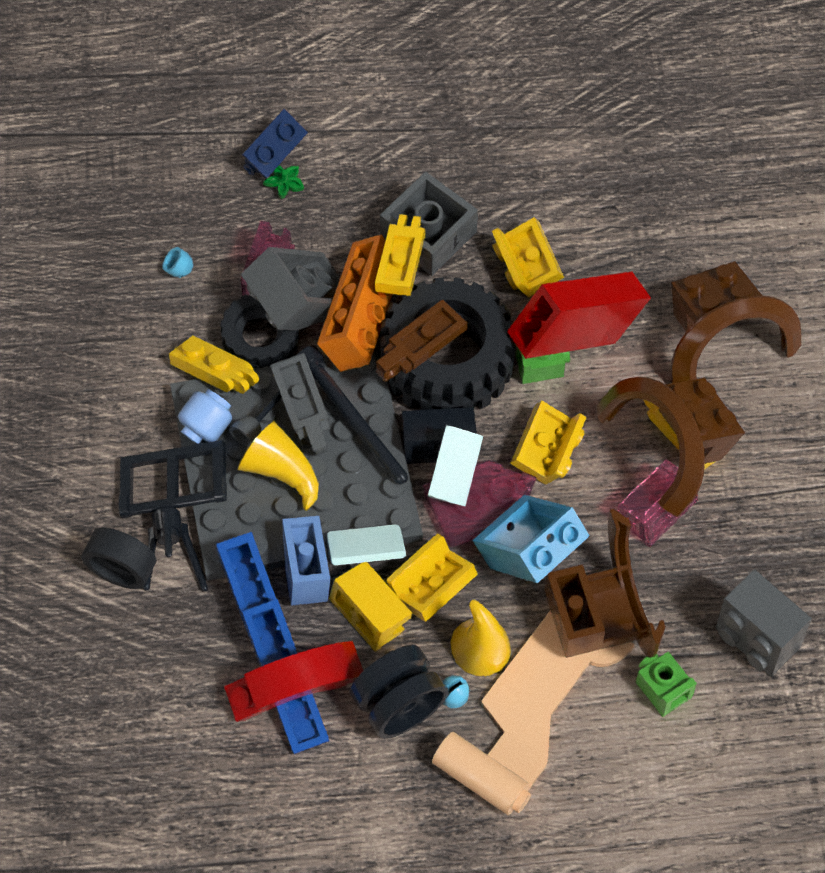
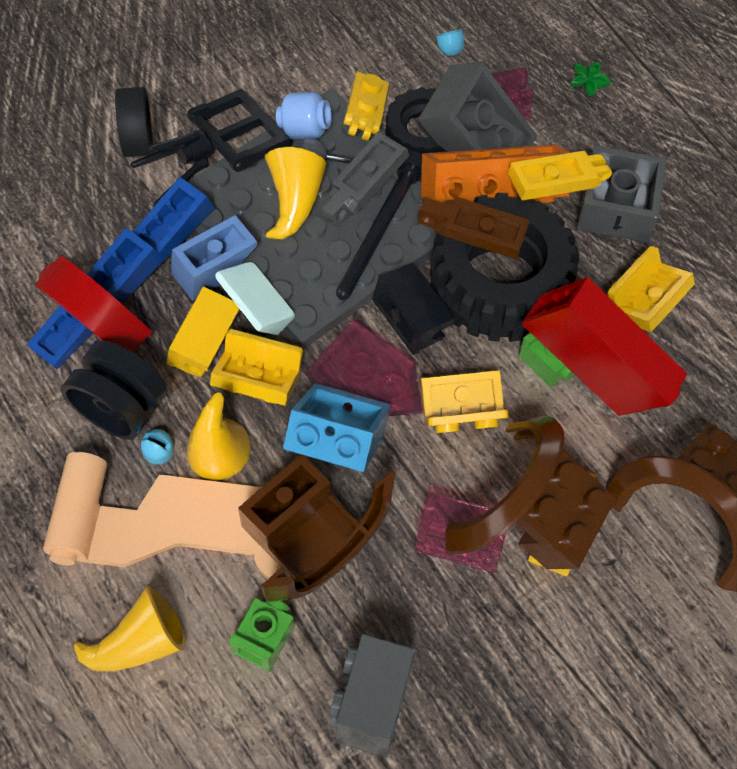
camera: 60 degrees right, 0 degrees up
(273, 145) = (613, 48): dark blue hinge -> none
(455, 466) = (378, 327): light aqua slope -> none
(624, 771) = (143, 636): none -> yellow hat

